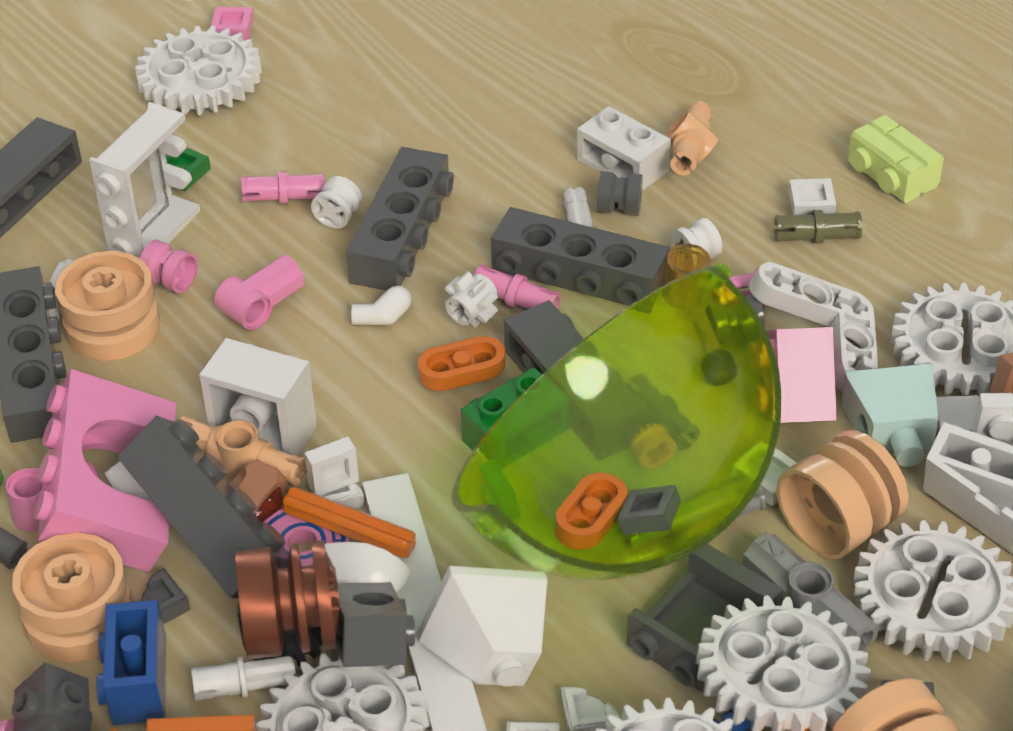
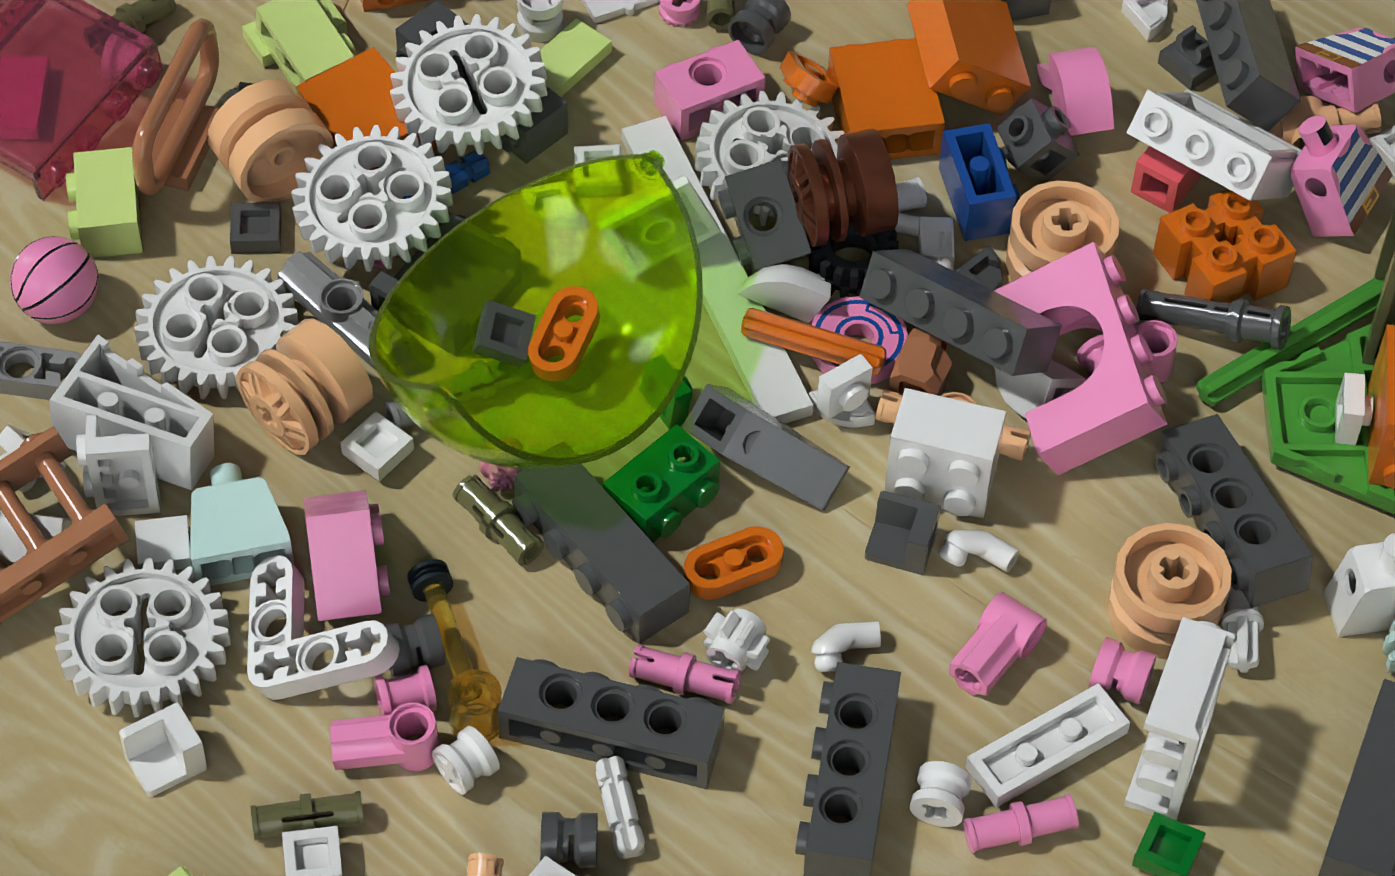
camera: 170 degrees right, 10 degrees up
(199, 627) = (934, 236): none -> white piece
(245, 229) = (1047, 745): none -> white plate
(325, 380) = (903, 532): none -> dark grey panel
(426, 442) = (764, 445): none -> dark grey slope
(743, 252) = (382, 739): none -> bright pink piece
(924, 268) = (163, 750): none -> white panel

